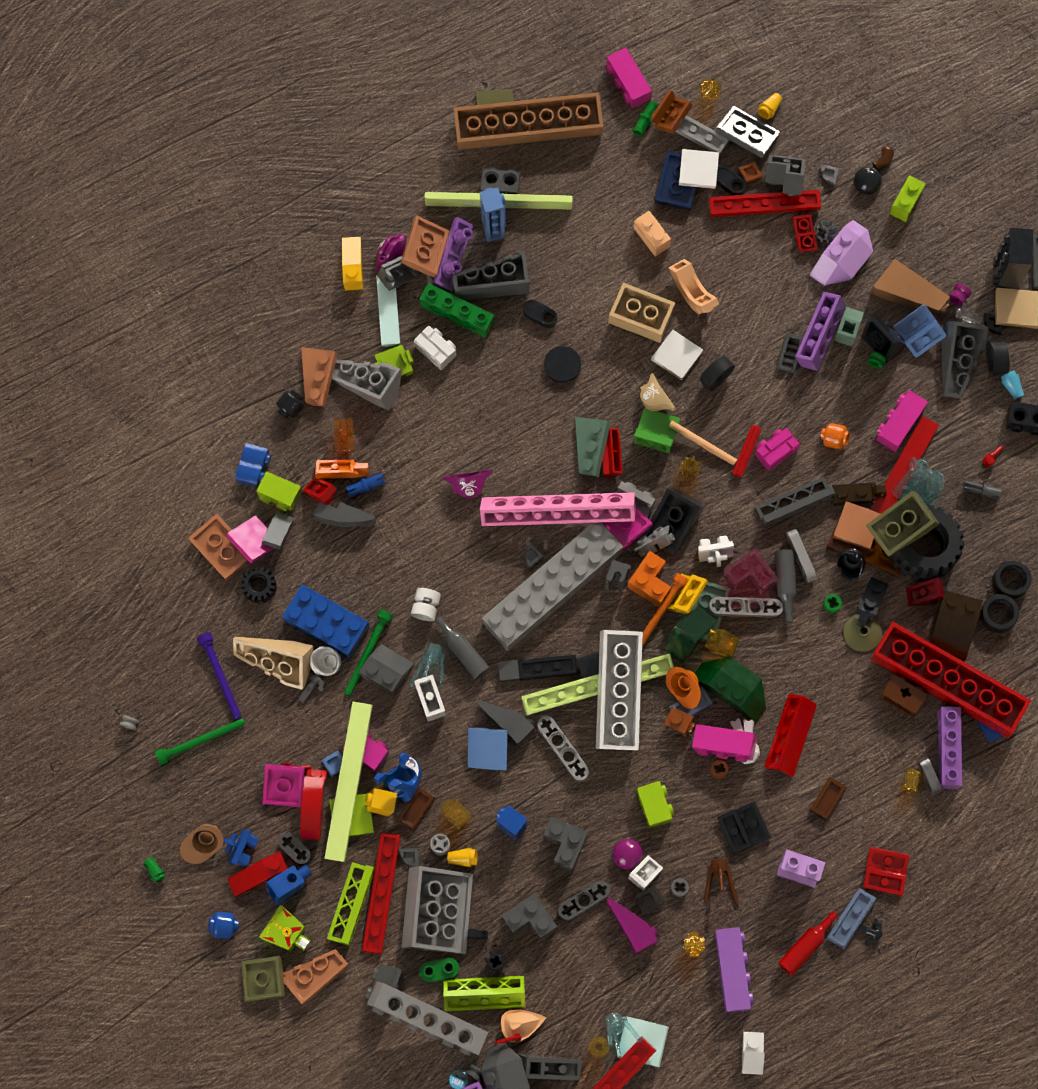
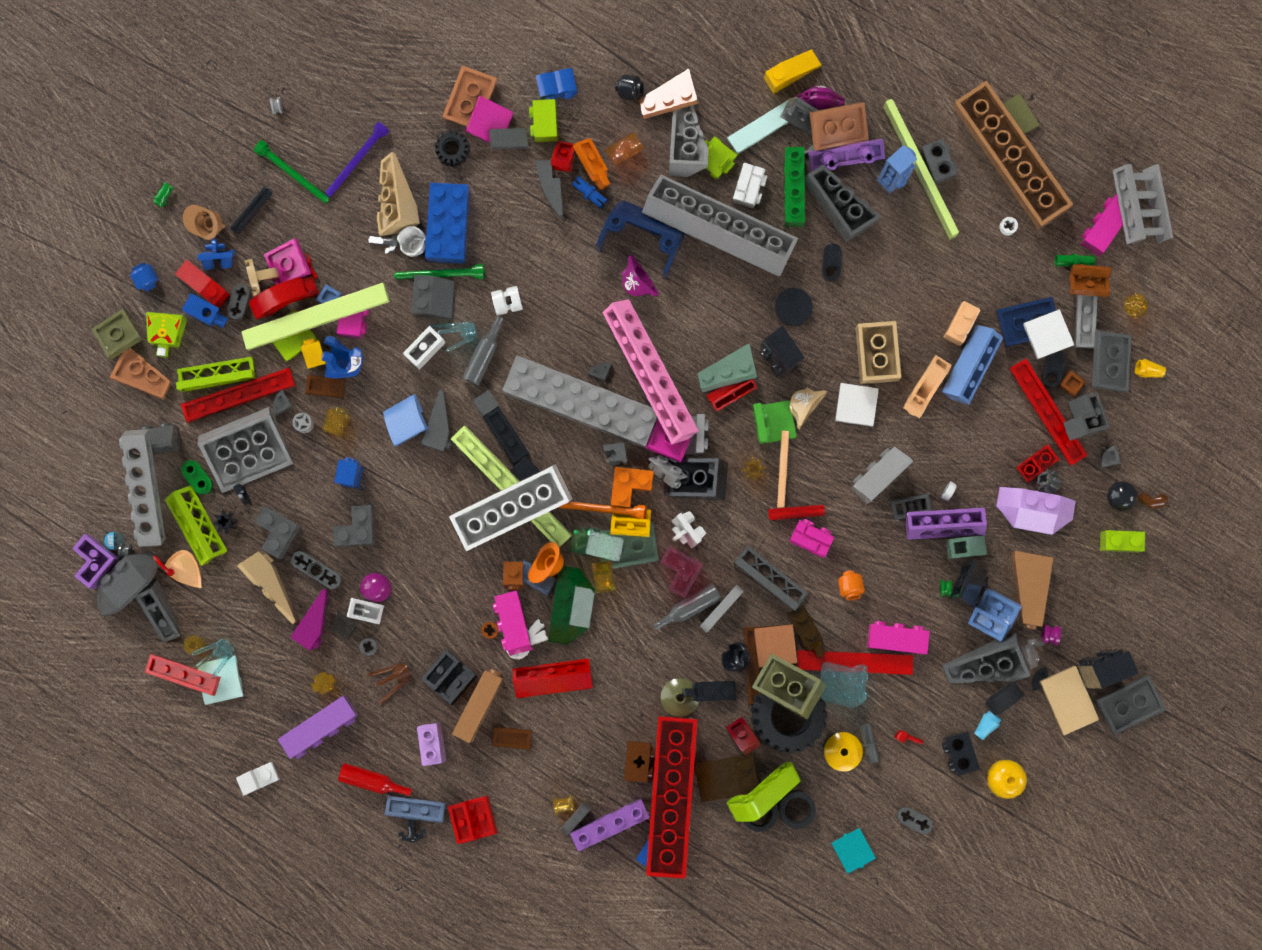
camera: 65 degrees right, 10 degrees up
(214, 795) = (251, 210): none -> black axle
(281, 819) = (259, 276): none -> tan tile
(404, 462) = (631, 214): none -> dark blue windscreen
(458, 387) = (719, 225): none -> light grey brick
(463, 857) = (302, 449): yellow cone -> none
(566, 746) = (442, 486): light grey beam -> none
(568, 949) = (263, 573): none -> tan wedge
(590, 160) = (1010, 220): none -> white bush
(601, 389) = (781, 353): none -> black brick
(624, 49) = (1130, 207): none -> light grey fence
(654, 804) = (429, 589): lime brick -> none
(692, 242) = (972, 364): none -> medium blue brick
(717, 373) = (854, 449): black tyre -> none
(745, 607) = (650, 580): light grey beam -> none
(751, 362) = (880, 474): none -> light grey slope
(785, 811) = (478, 706): none -> medium nougat slope
(793, 316) = (949, 490): none -> white tile
(837, 601) = (696, 662): green bush -> none
(974, 524) = (833, 749): none -> yellow dish
(989, 597) = (763, 797): none -> lime beam

